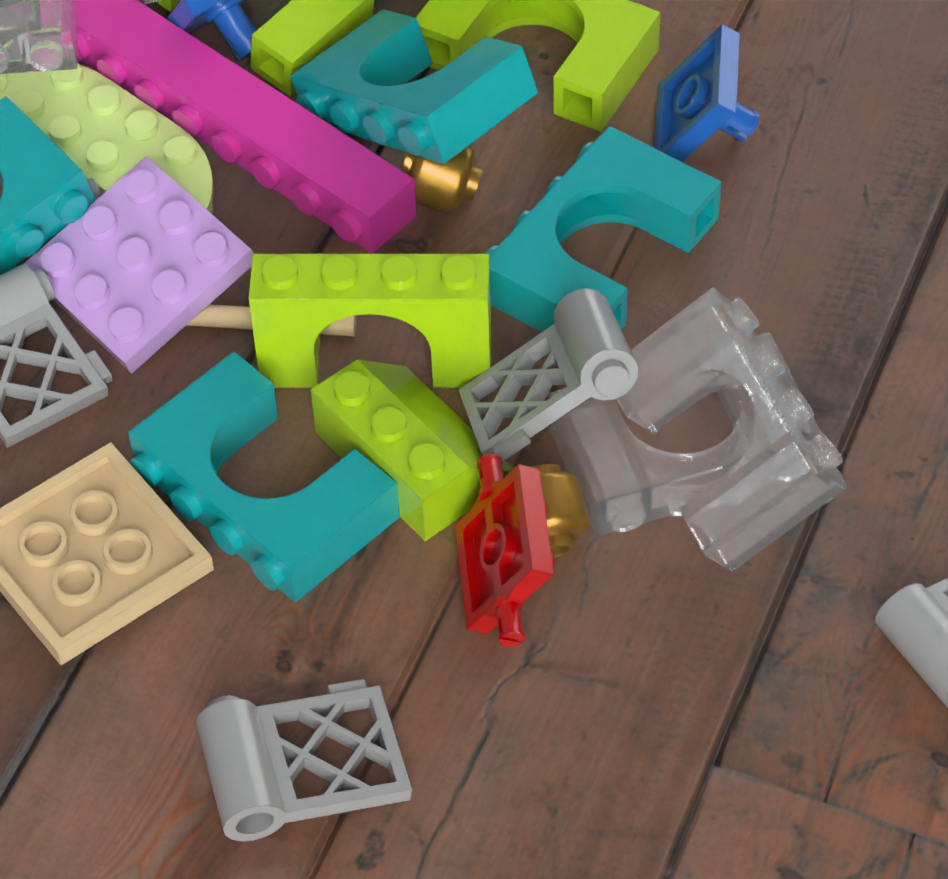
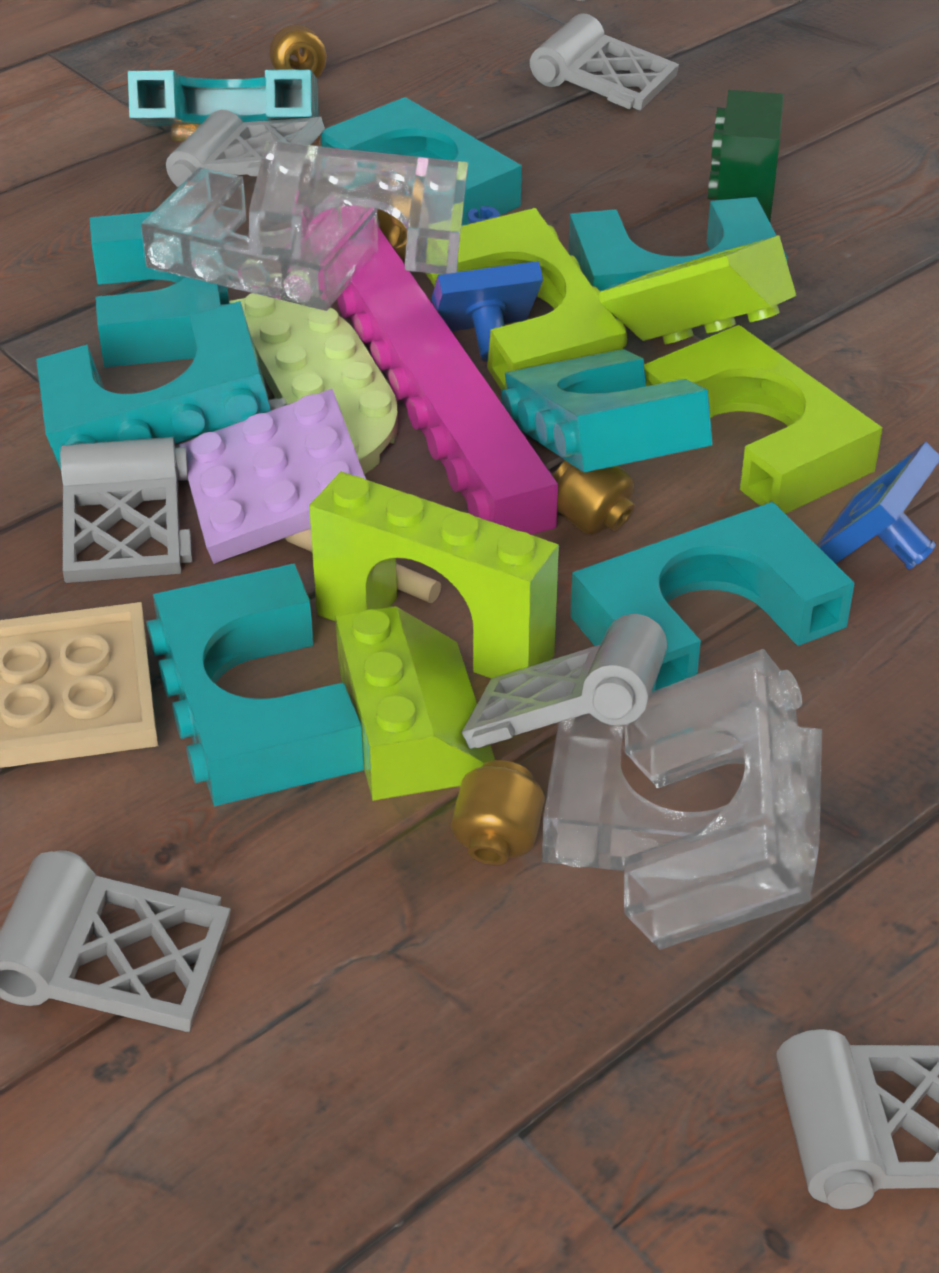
camera: 25 degrees right, 10 degrees down
(503, 549) = (422, 825): red plate -> none

